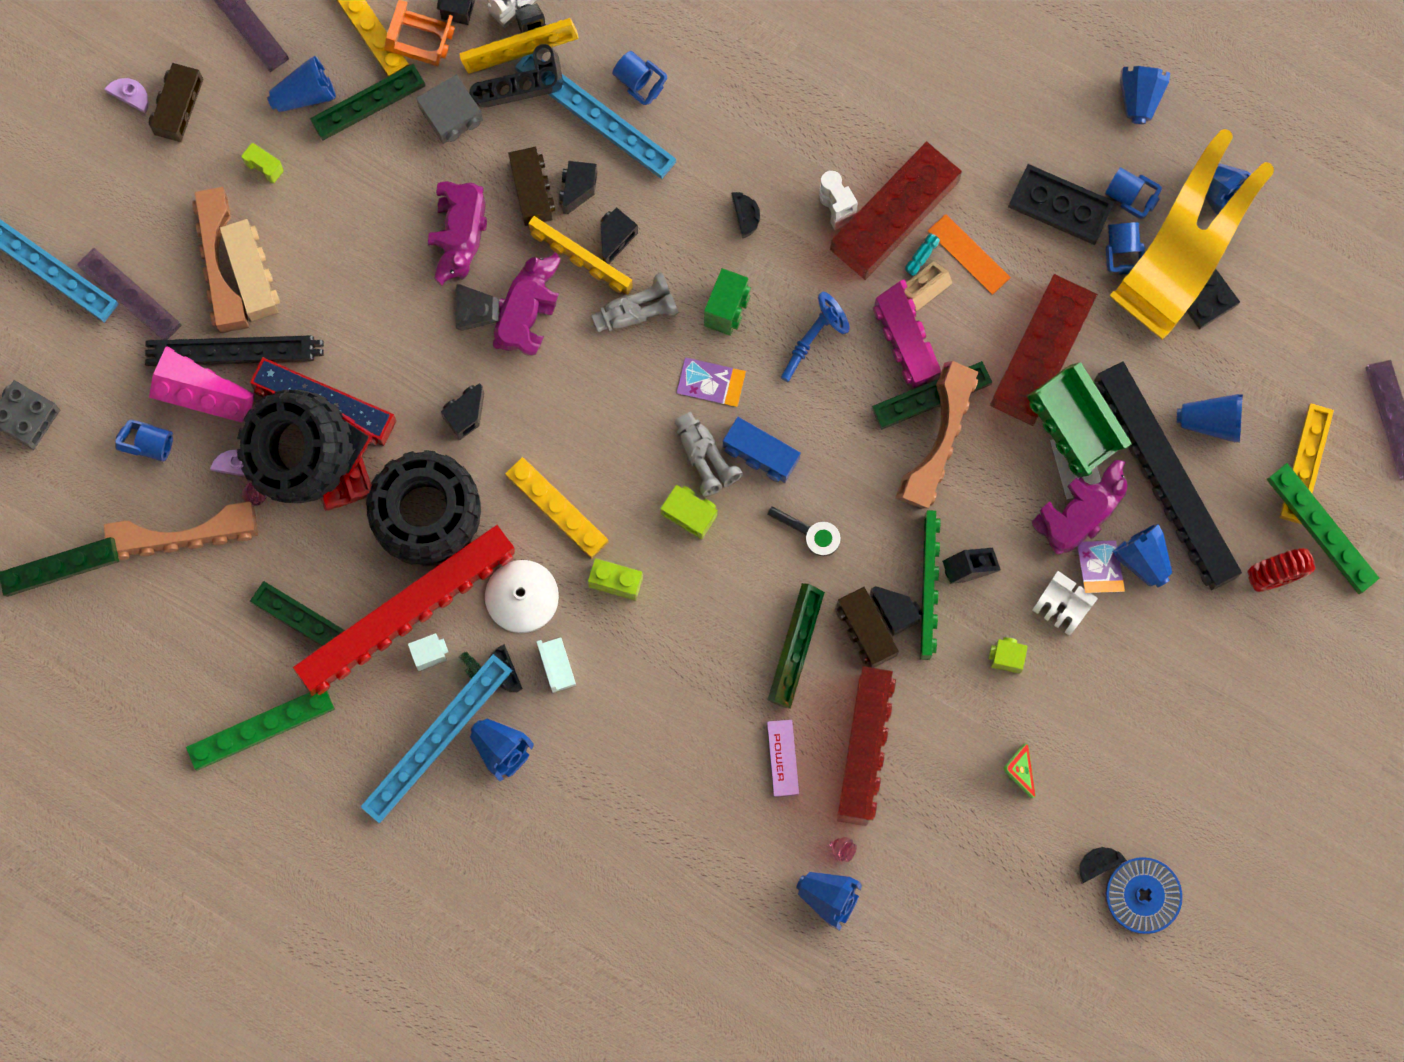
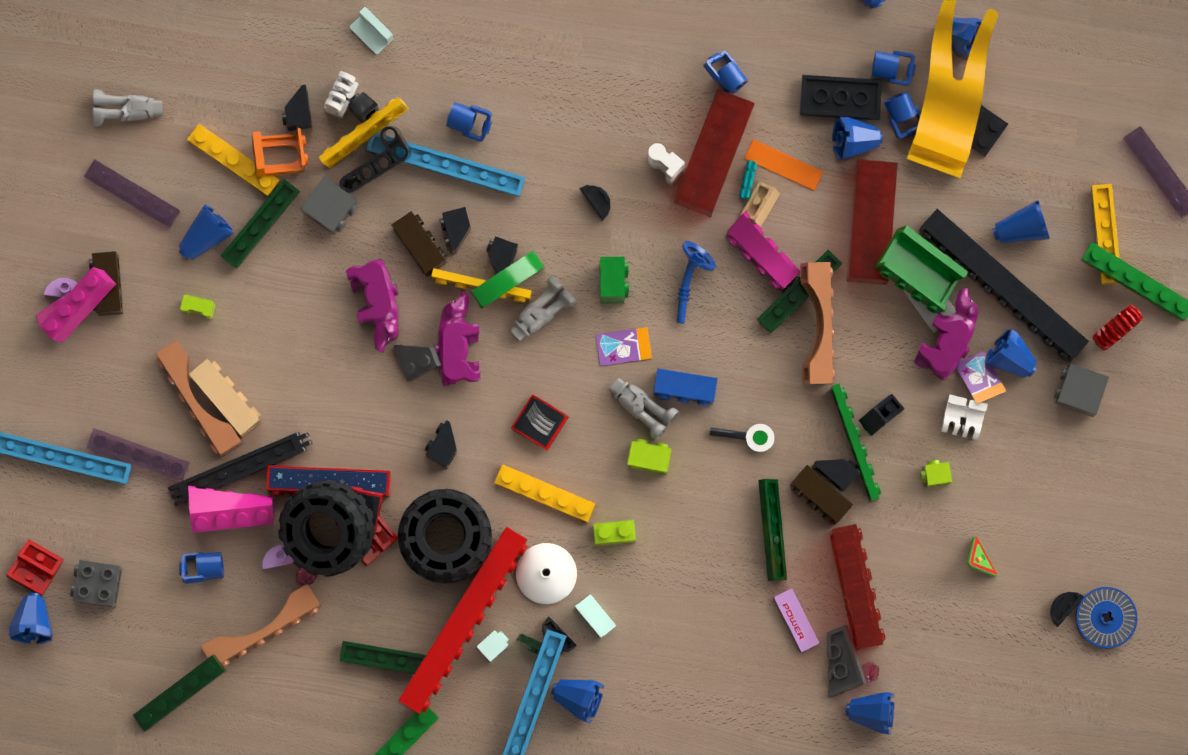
camera: 25 degrees left, 5 degrees up
(131, 108) = (70, 310): none -> dark pink wedge
(583, 427) = (539, 422): none -> slope
(610, 256) = (507, 279): none -> green slope
(818, 829) = (844, 664): none -> dark grey wing
(943, 134) = (730, 76): none -> blue piece
(1060, 251) = (854, 138): none -> blue cone
(1211, 624) = (1081, 389): none -> dark grey brick

